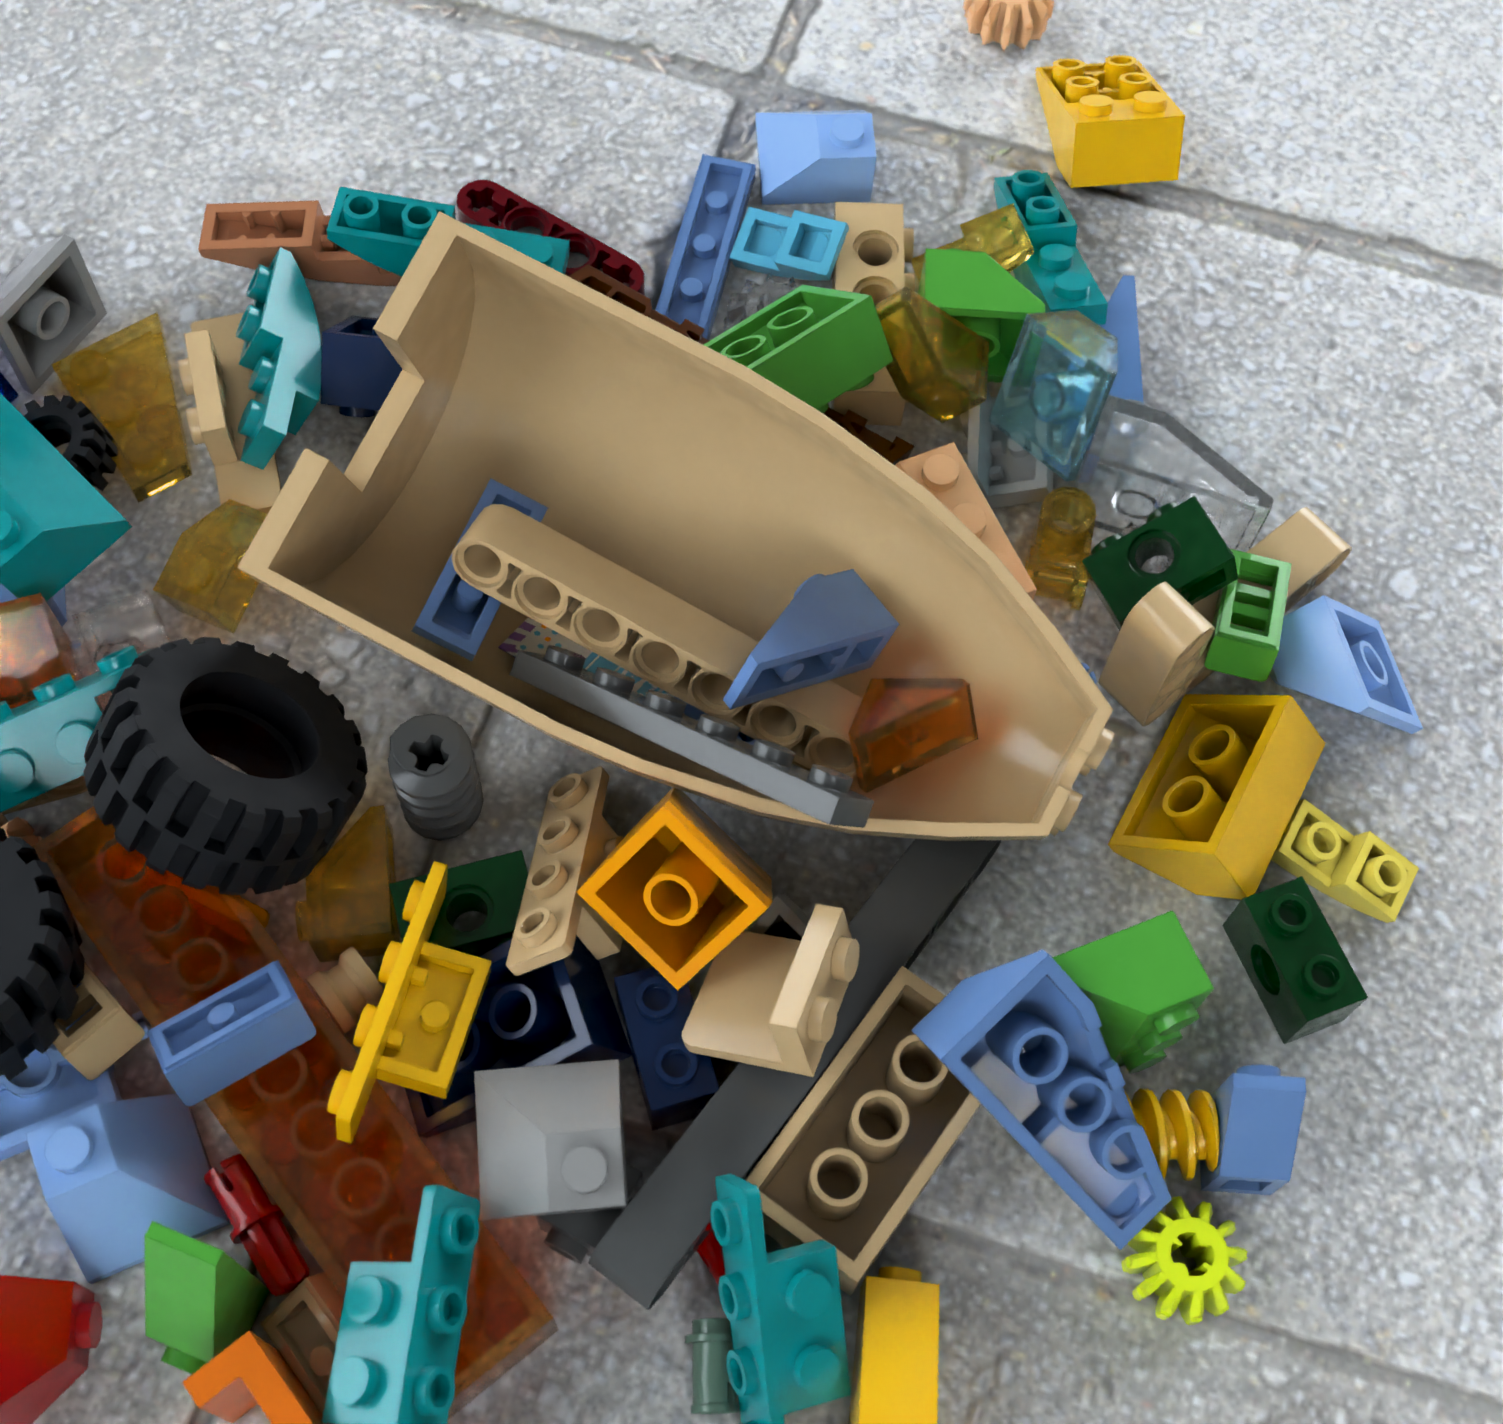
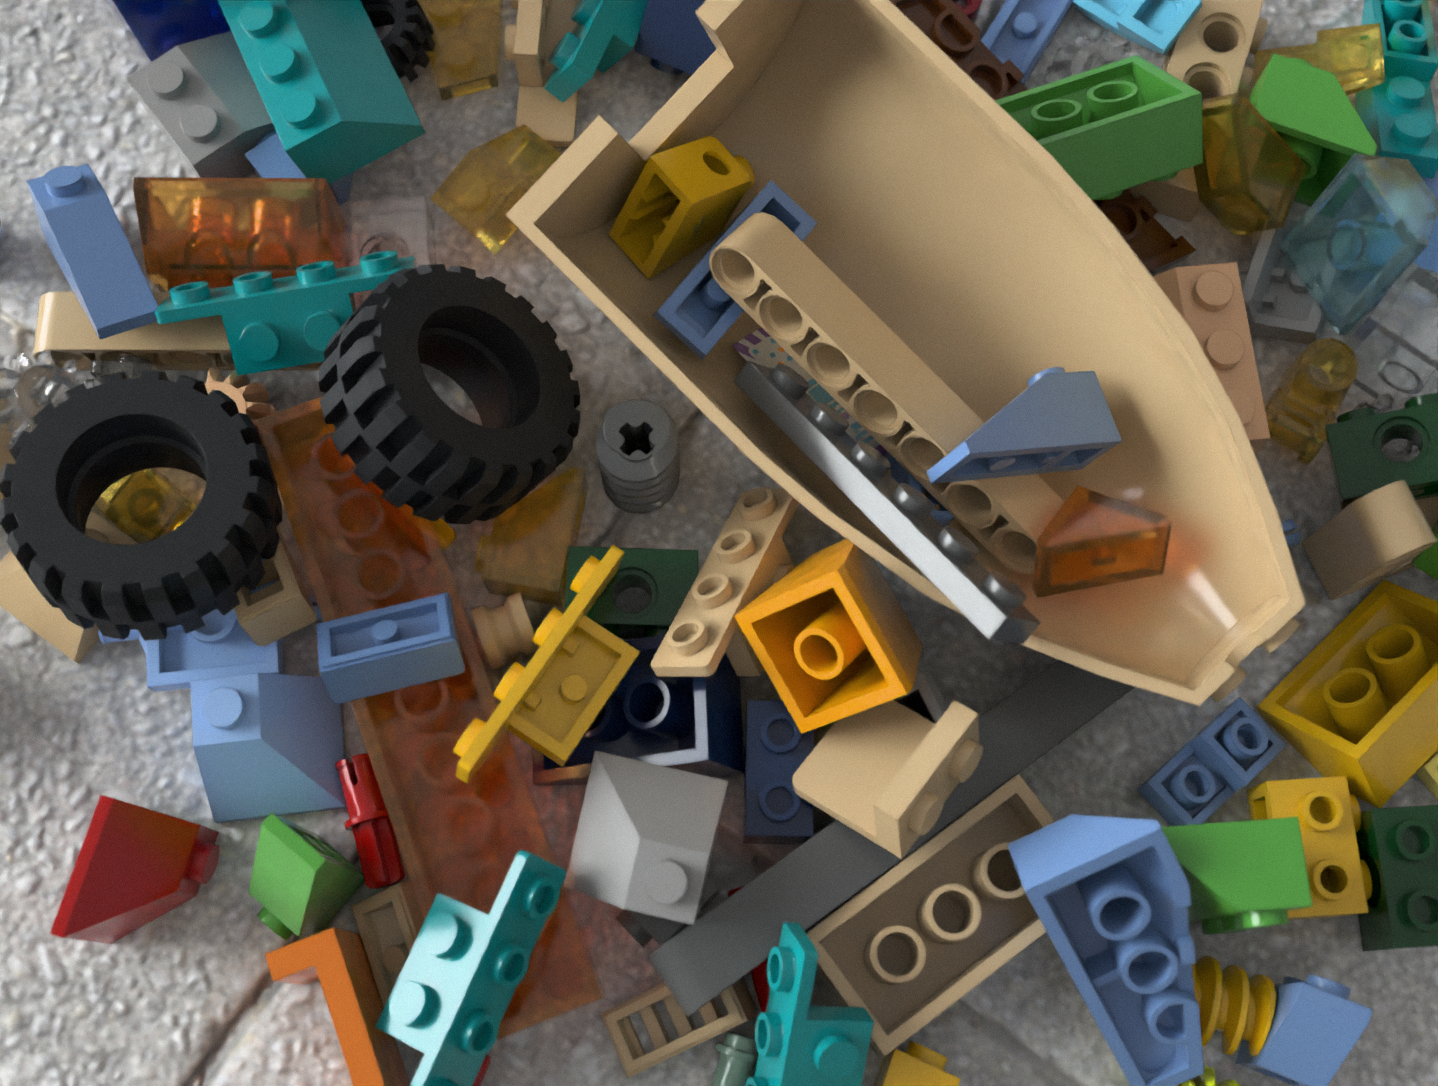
camera: 20 degrees right, 10 degrees up
(409, 506) = (697, 184): none -> yellow torso
(591, 1367) = (627, 1043): none -> tan slope
(1088, 901) = (1212, 766): none -> medium blue slope
(1212, 928) = (1328, 827): none -> yellow brick

